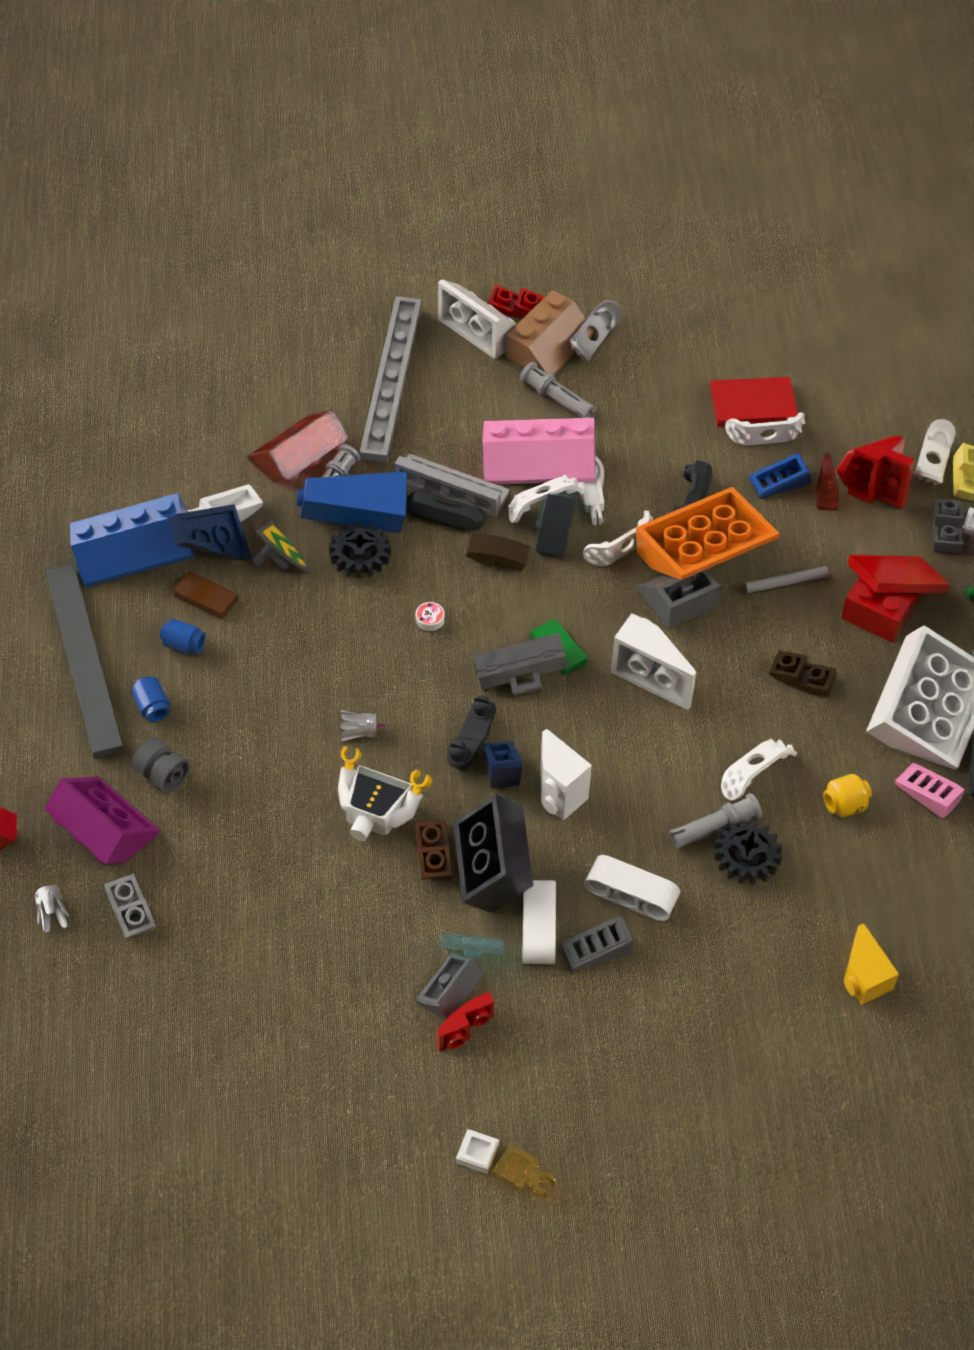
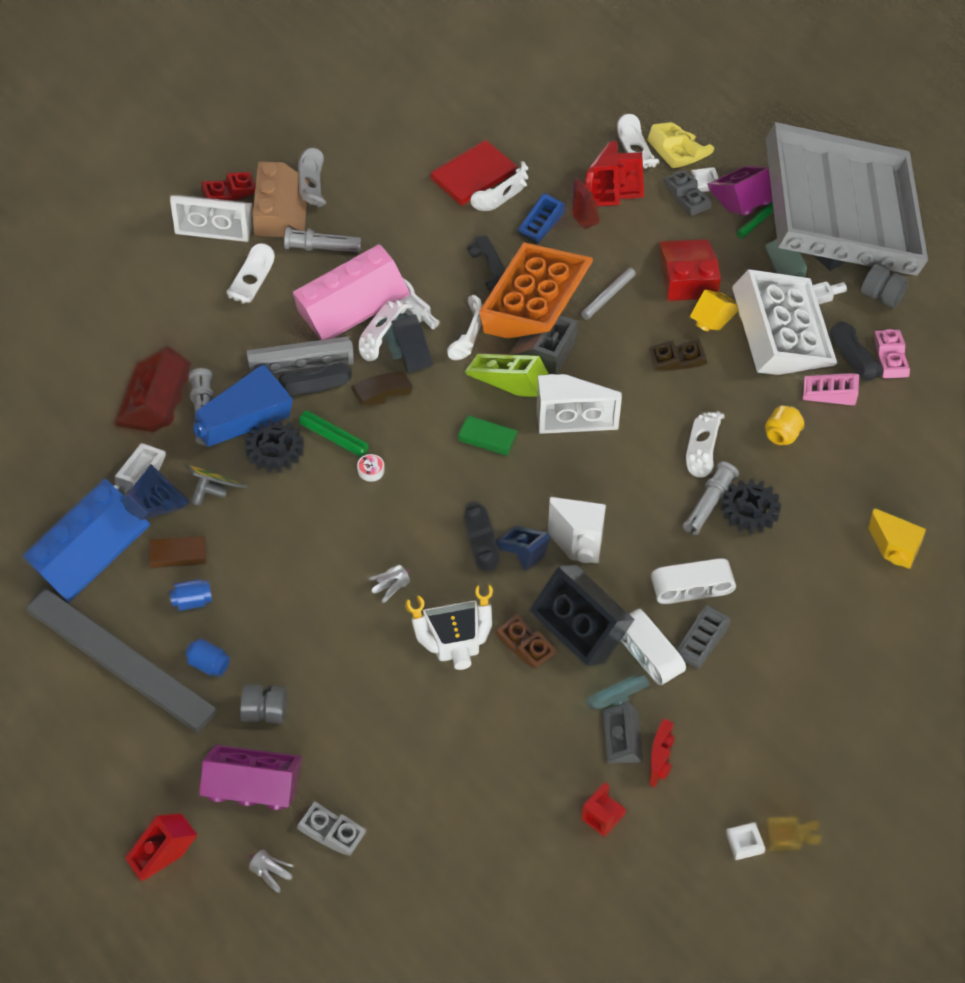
camera: 35 degrees left, 0 degrees up
(371, 1039) = (602, 811): none -> red panel
(390, 380) = (182, 299): light grey plate -> none
(423, 568) = (334, 433): none -> green axle
(483, 385) = (257, 264): none -> white piece
(532, 656) = (478, 454): flat silver piece -> none
(623, 597) = (508, 372): none -> lime slope
(871, 649) = (713, 310): none -> yellow slope
(898, 574) = (689, 244): red tile -> none

